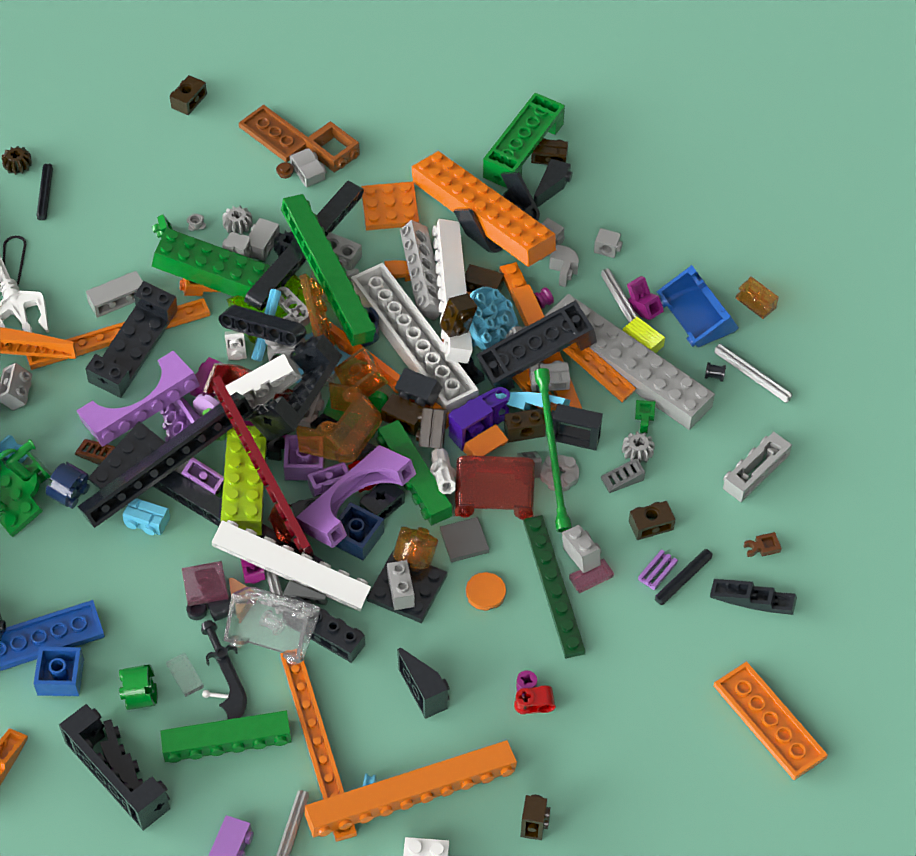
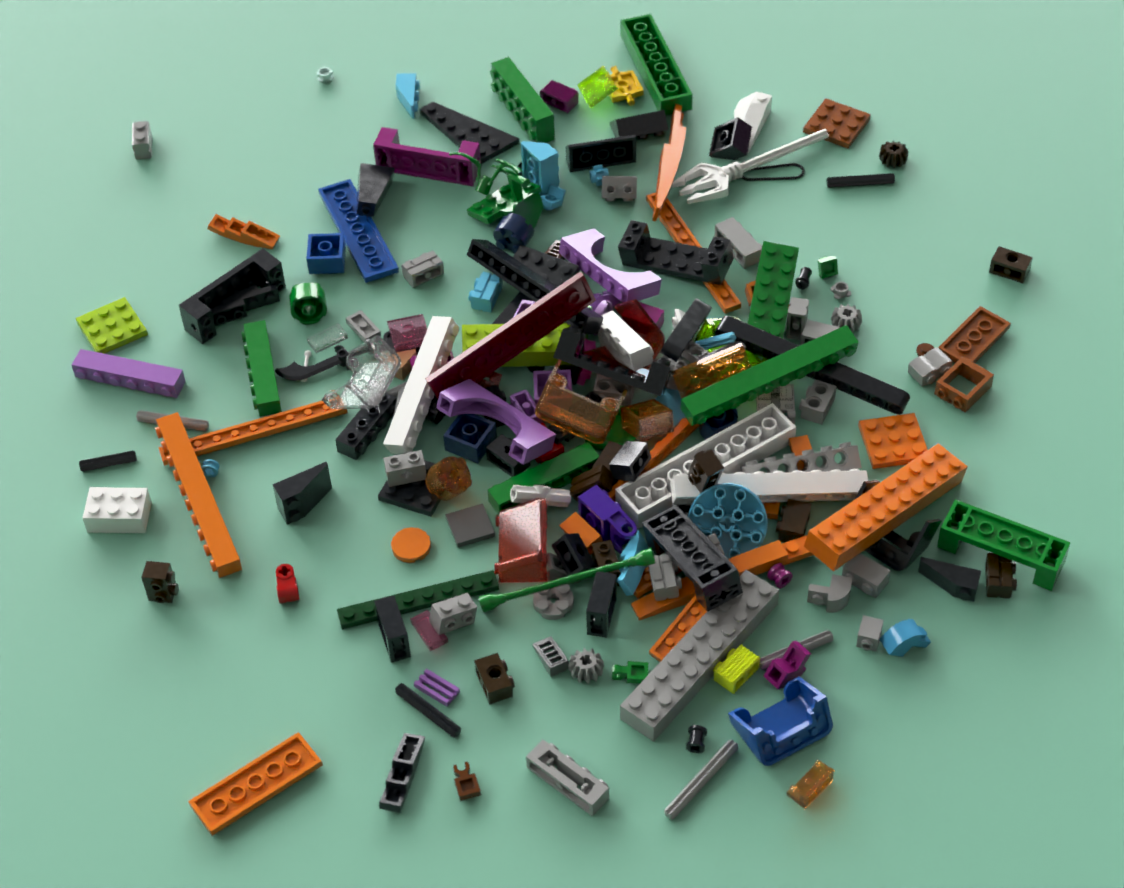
camera: 90 degrees right, 5 degrees down
(98, 576) = (422, 268): none -> light grey brick
(177, 636) = (362, 326): none -> light grey plate
(520, 445) = (573, 554): none -> black brick
(527, 676) = (310, 581): magenta wheel -> none
(600, 598) = (392, 628): none -> black window
(616, 218) = (903, 636): none -> dark azure brick

